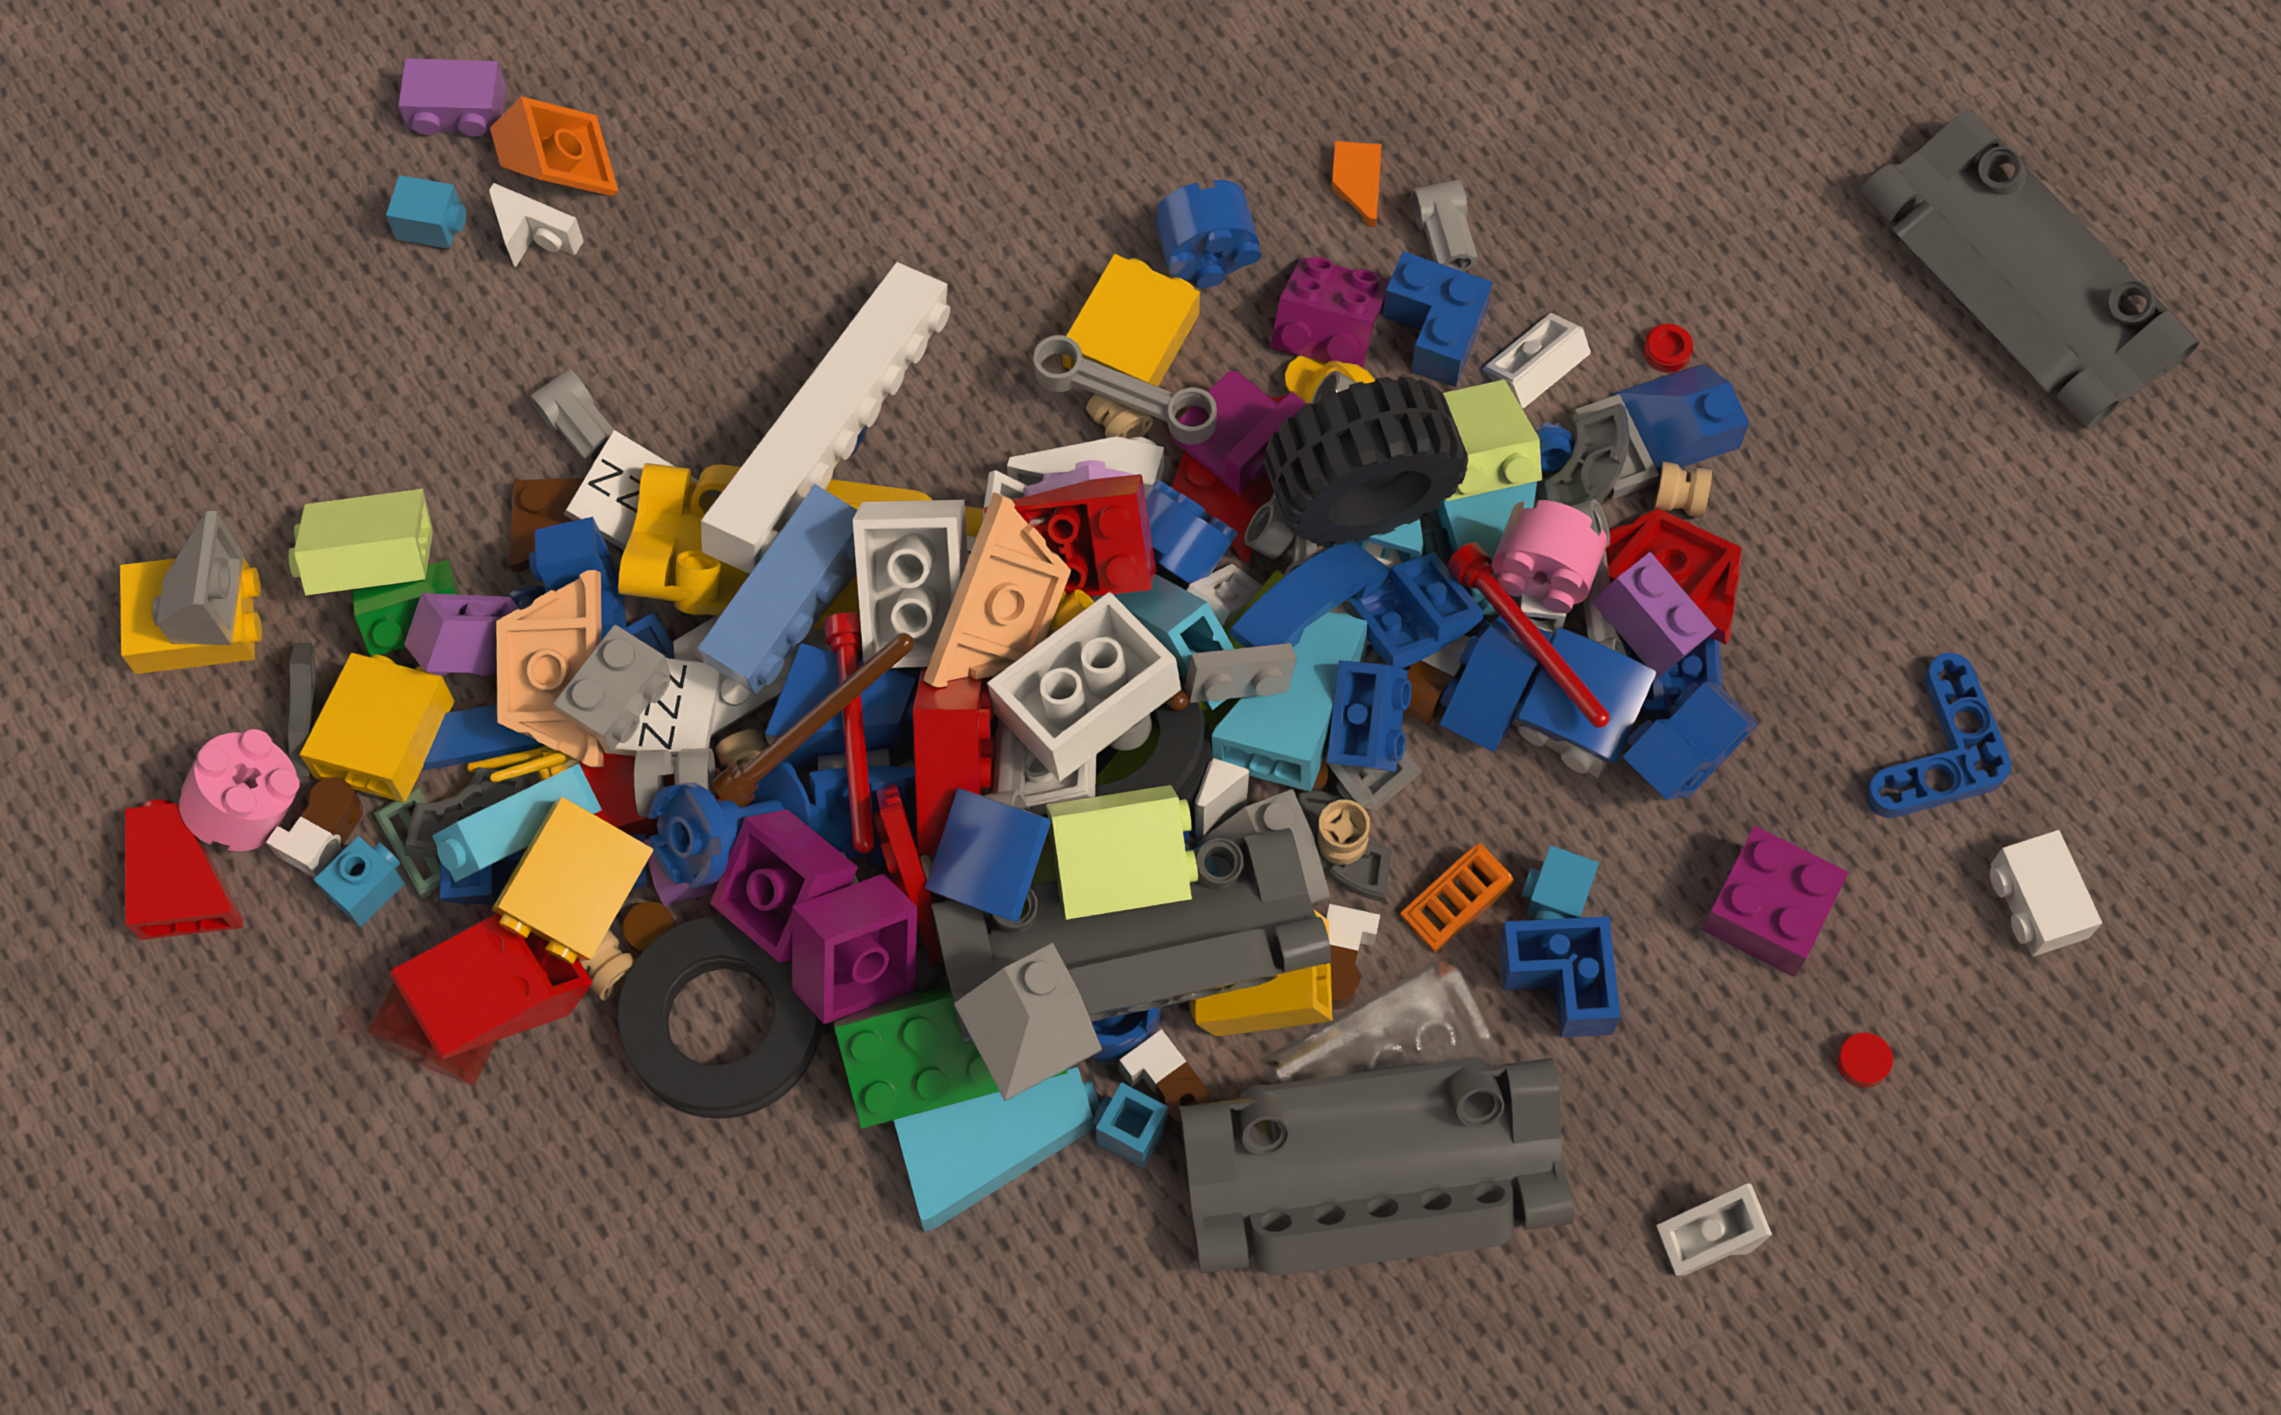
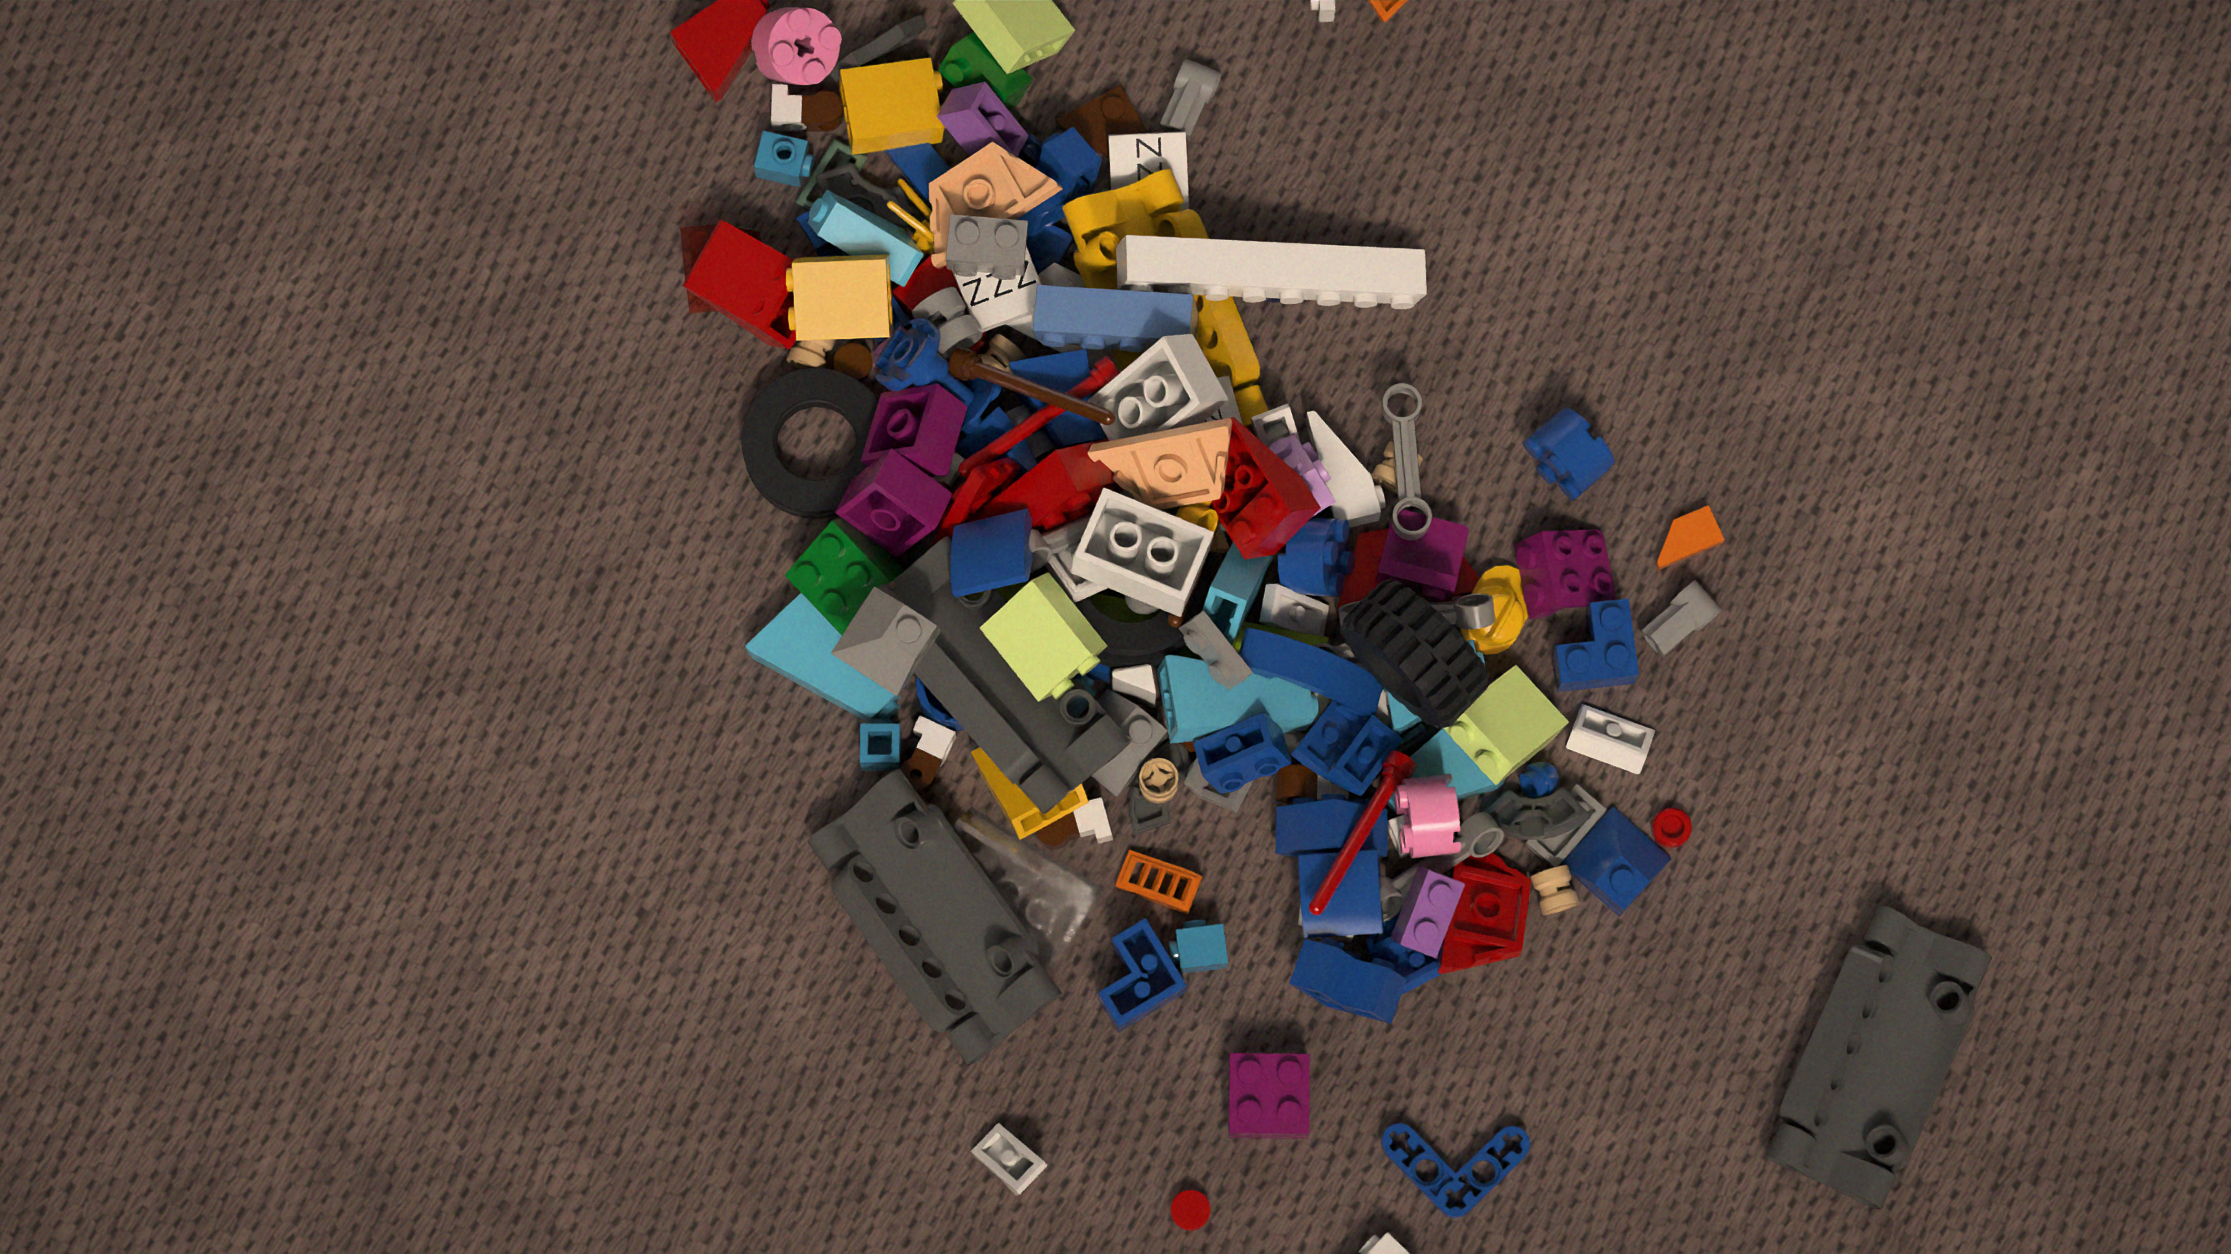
camera: 60 degrees right, 10 degrees up
(1135, 320) = (1471, 440): yellow brick -> none

